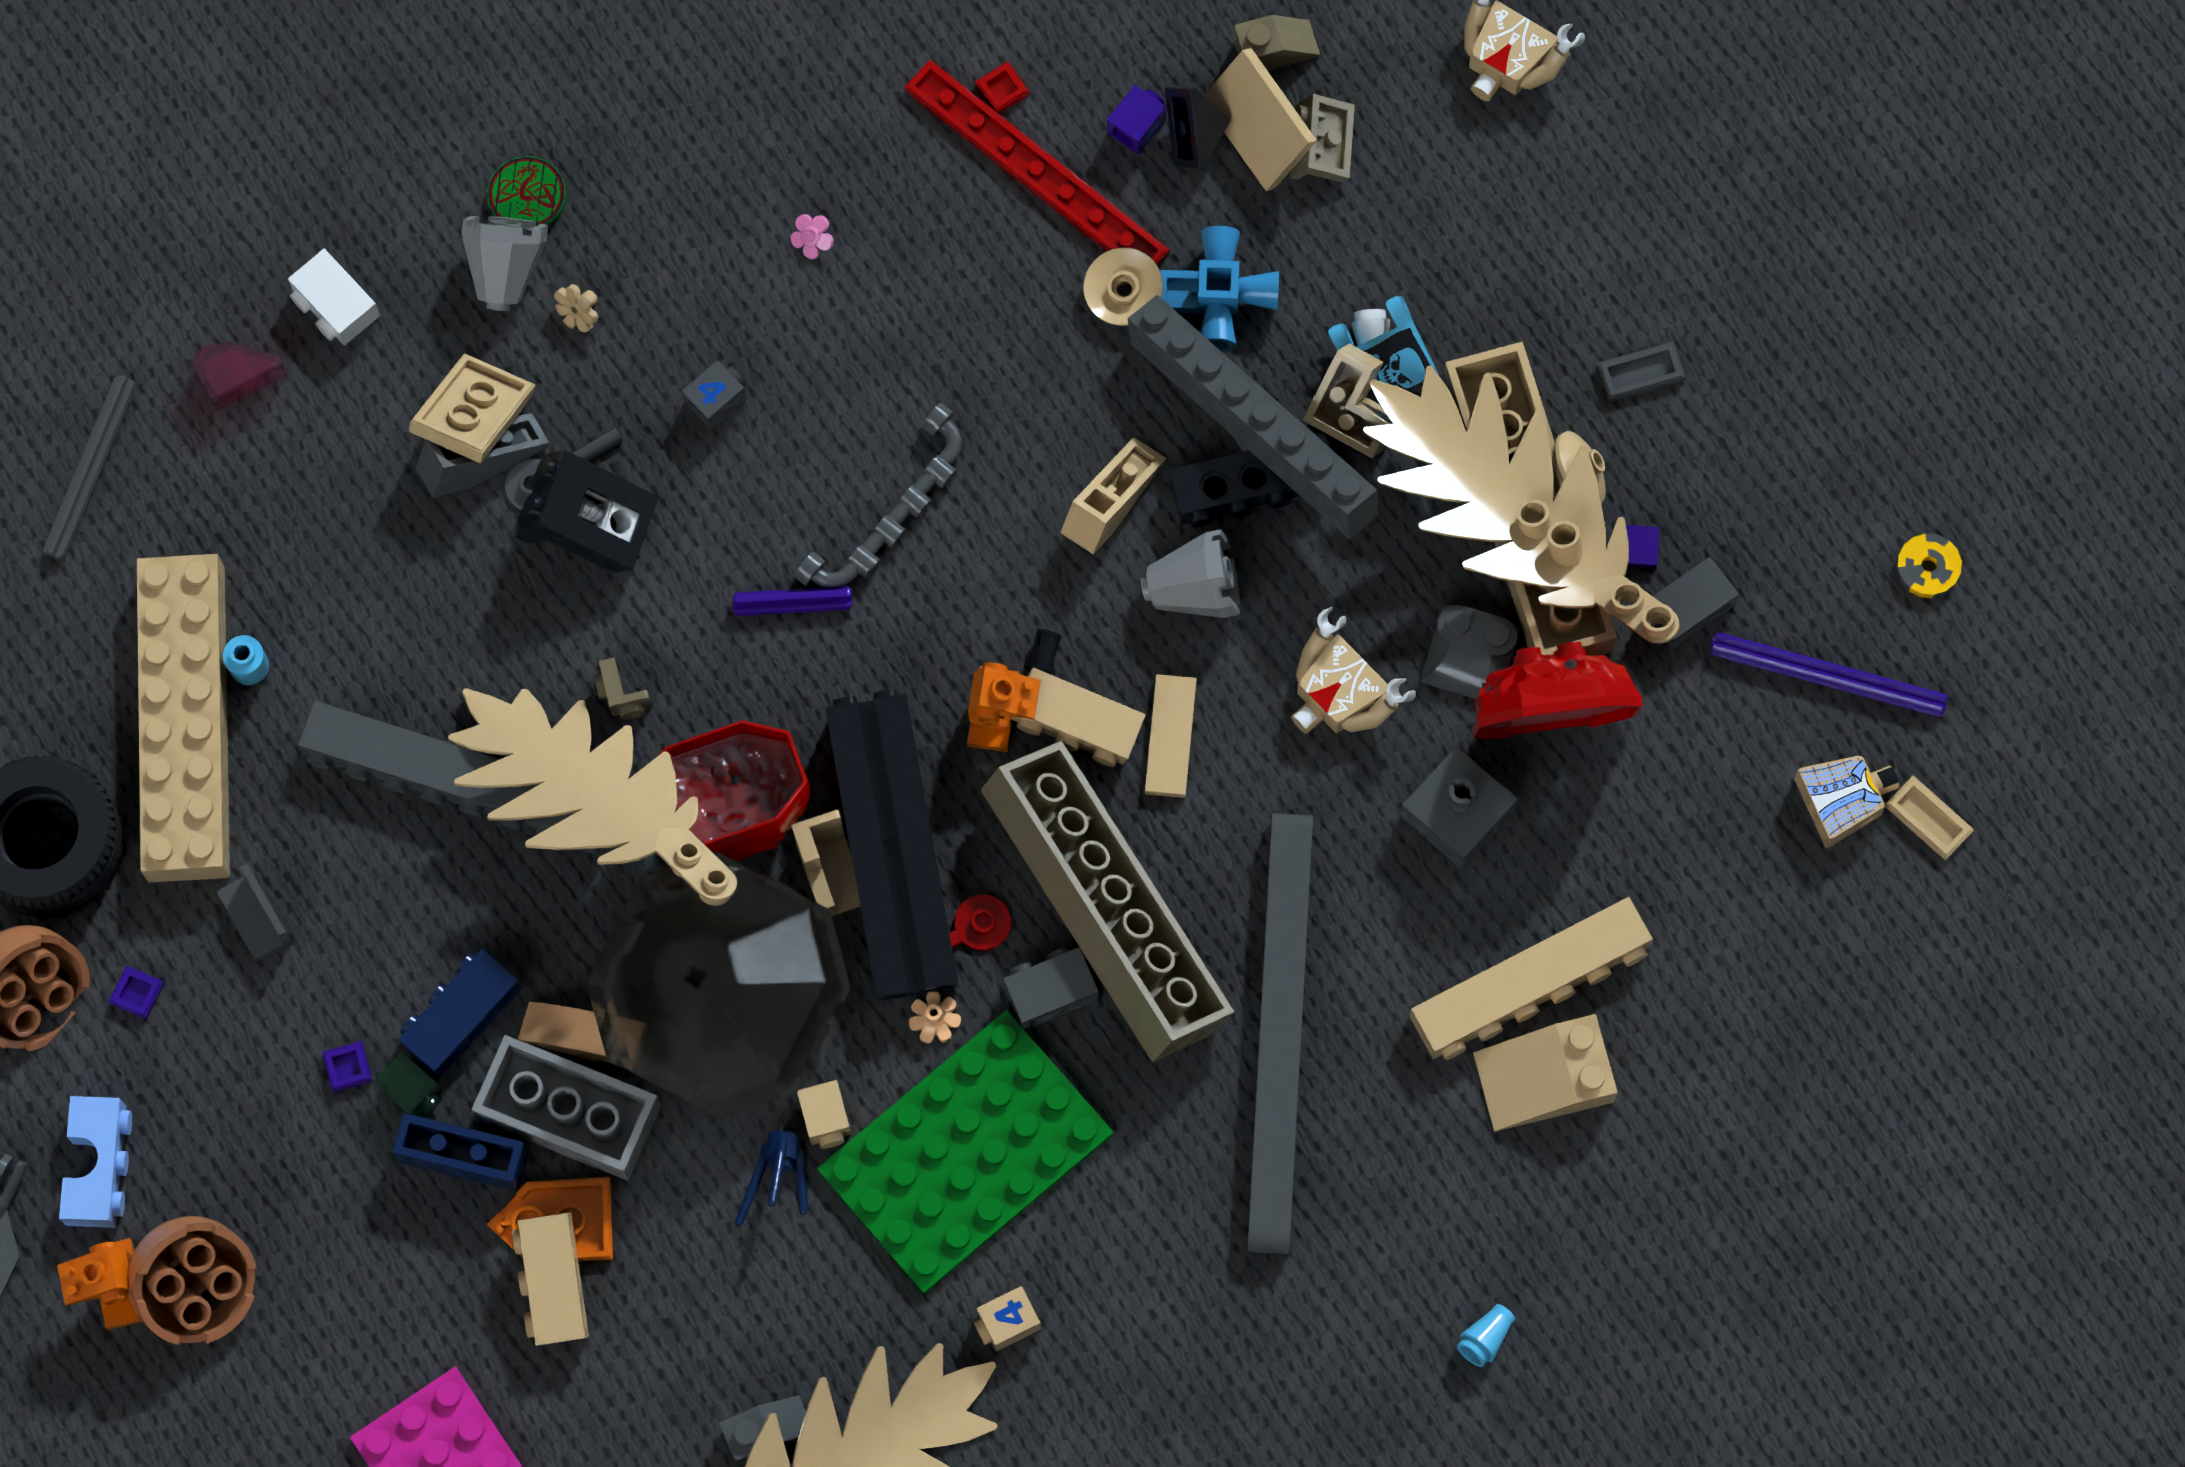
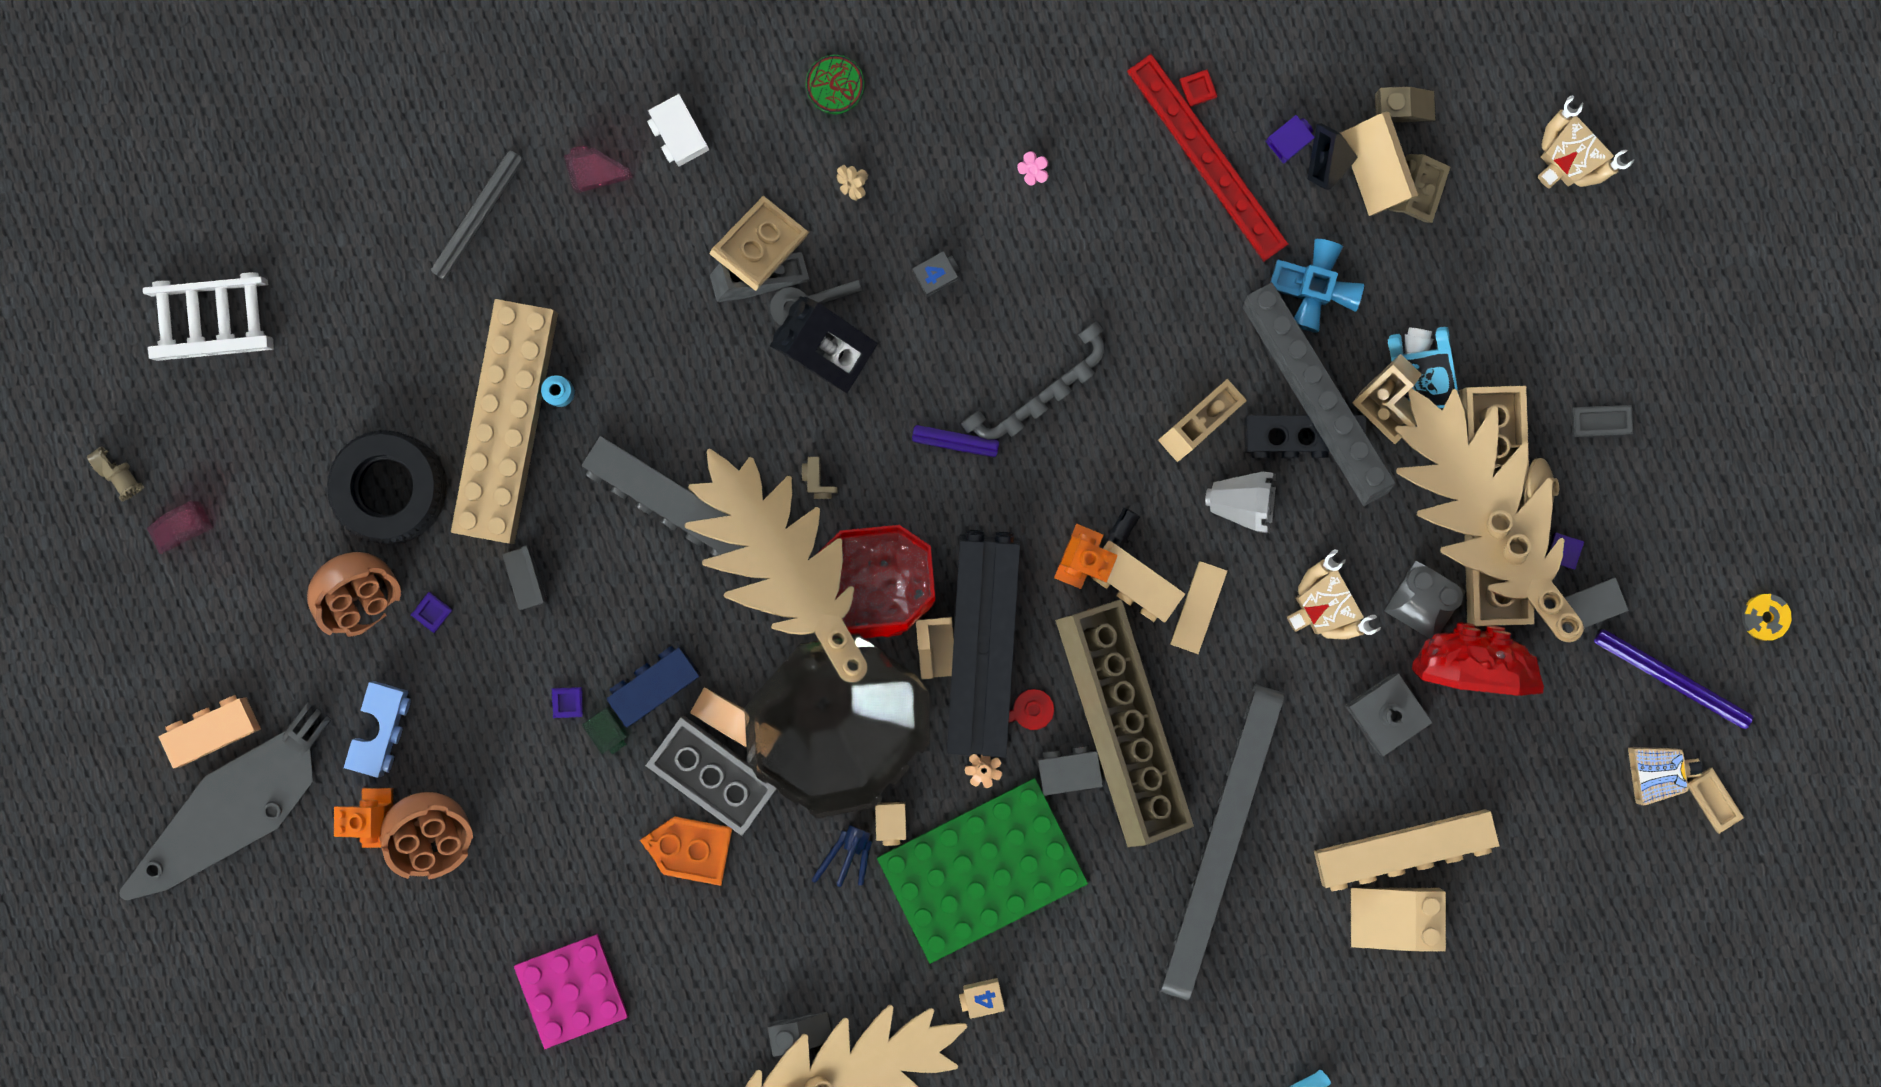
camera: 10 degrees right, 15 degrees up
(460, 1152) = (632, 788): dark blue brick -> none
(502, 257) = (806, 131): light grey cone -> none
(551, 1279) = (675, 894): tan brick -> none
(1113, 270) = (1248, 249): tan dish -> none

